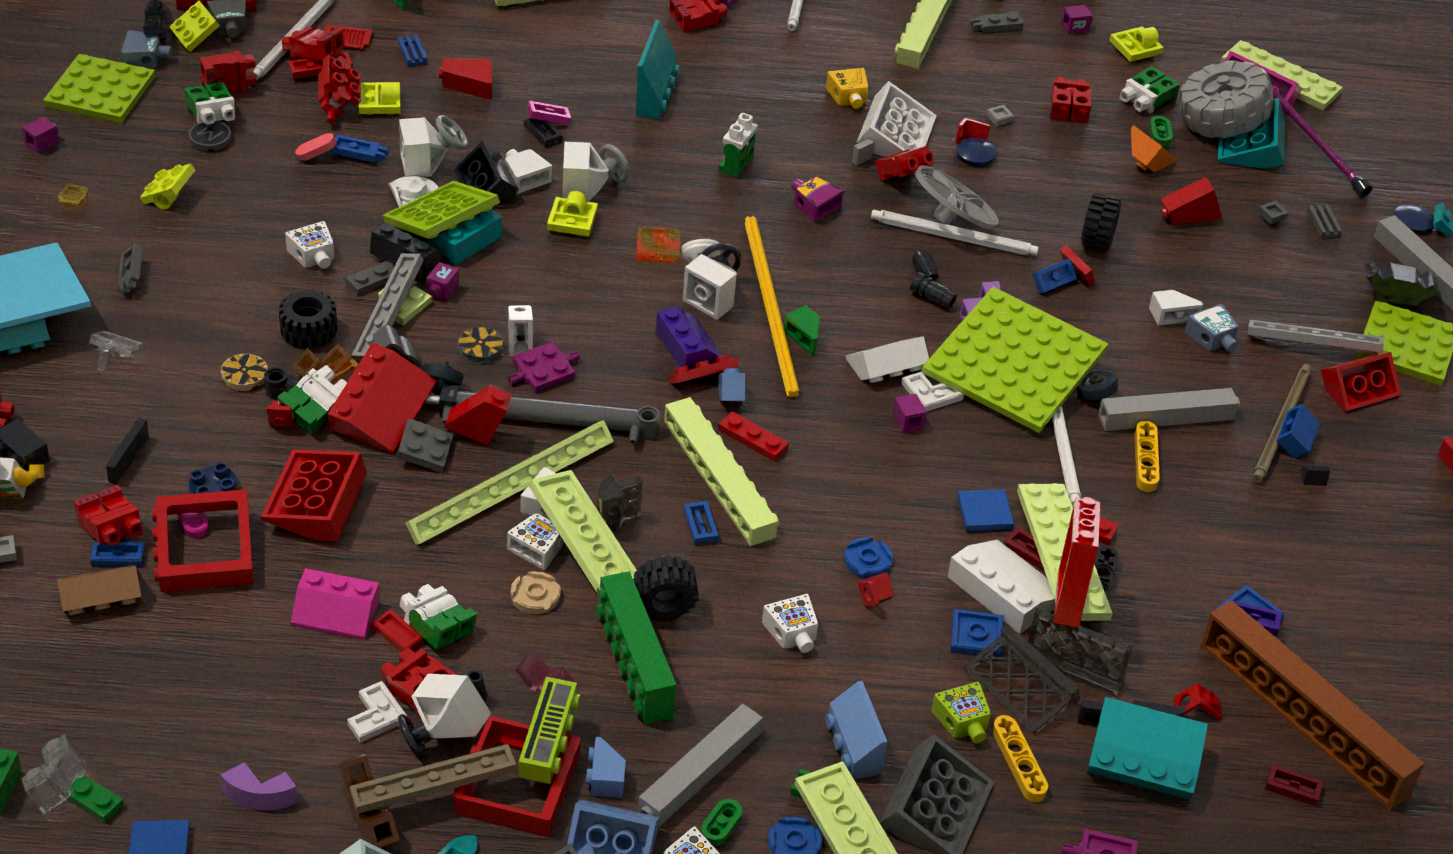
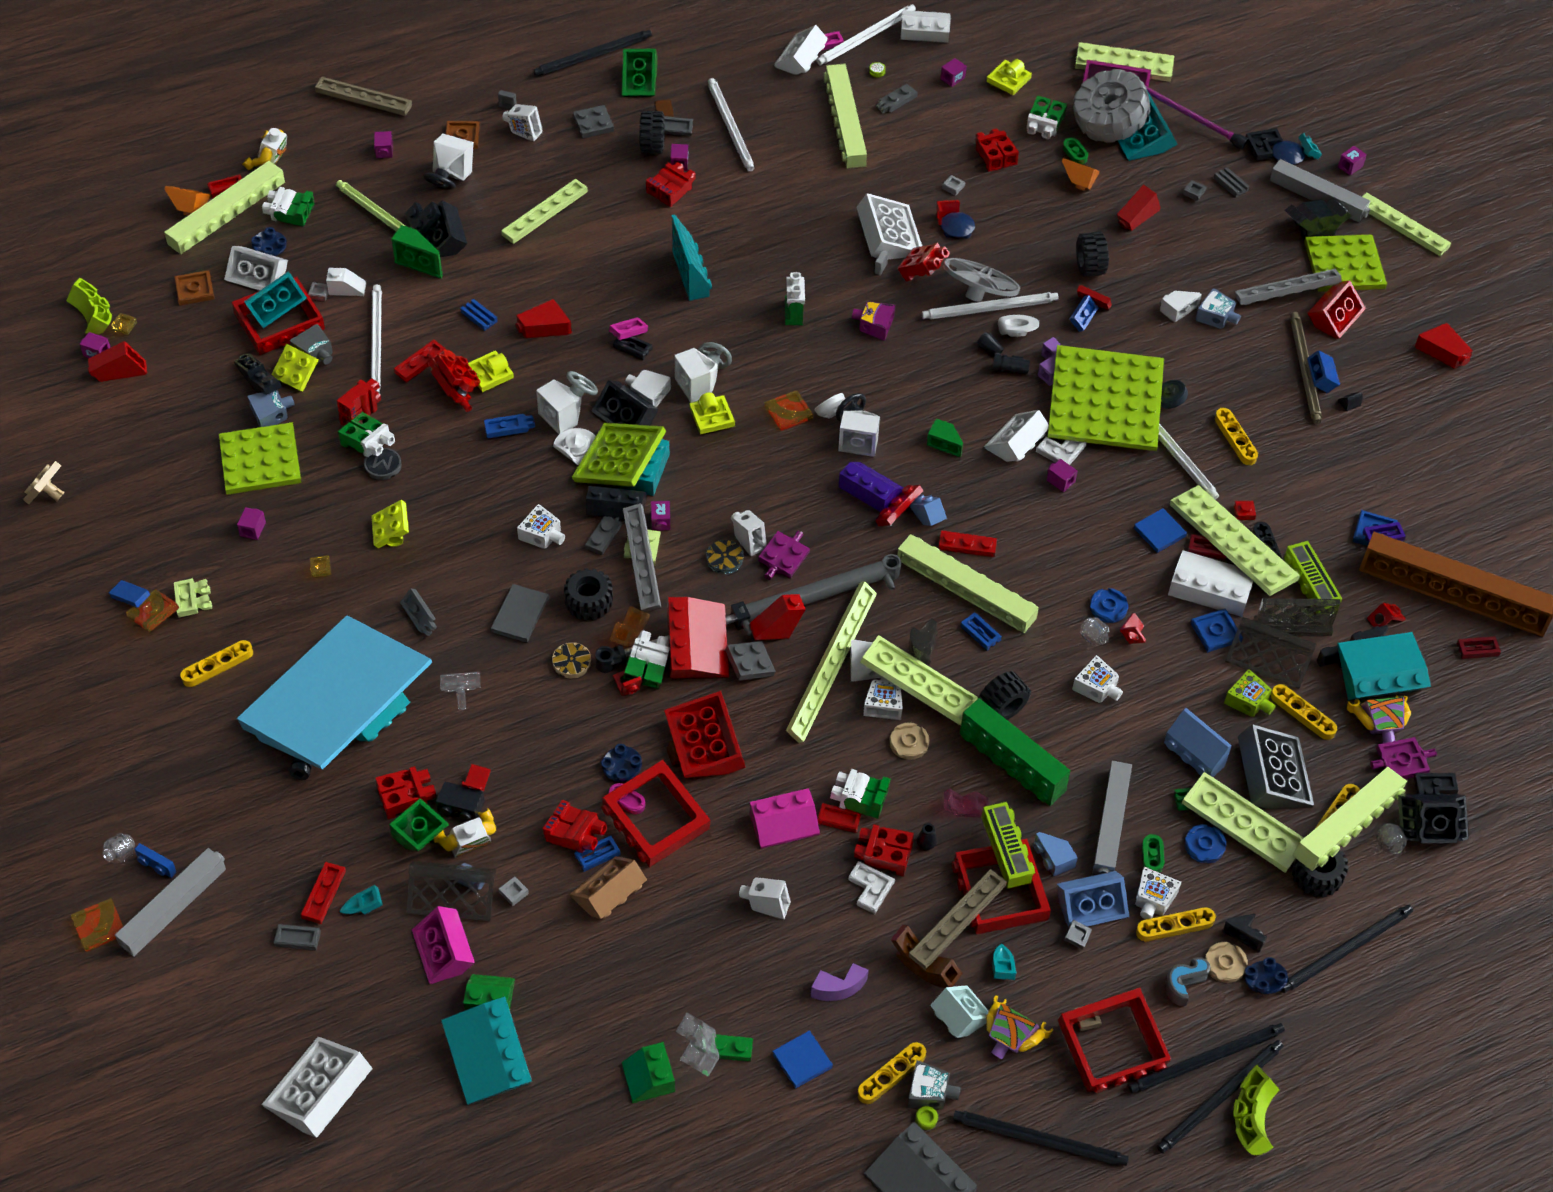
camera: 25 degrees left, 10 degrees up
(55, 434) = (477, 777): none -> red bracket
(127, 451) = (541, 770): black tile -> none
(229, 311) = (520, 613): none -> dark grey tile
(252, 669) = (767, 896): none -> white torso
(314, 43) = (403, 343): red hips -> none
(316, 147) = (476, 438): coral tile -> none
(353, 37) = (417, 324): red window -> none
(389, 338) = (673, 588): dark grey brick -> none
(443, 374) = (723, 595): black wheel -> none
(447, 709) = (931, 863): white piece -> none
(771, 307) = (906, 428): yellow axle -> none
(828, 573) = (1094, 631): none -> clear head
(848, 86) = (831, 207): yellow torso -> none
(968, 260) = (1017, 325): none -> white hat
(1077, 562) = (1284, 584): red piece -> none
(1114, 800) = (1382, 715): none -> torso
(1132, 623) = (1313, 577): none -> lime brick
(1169, 408) = (1228, 391): light grey brick -> none
(1385, 195) = (1261, 141): none -> black plate

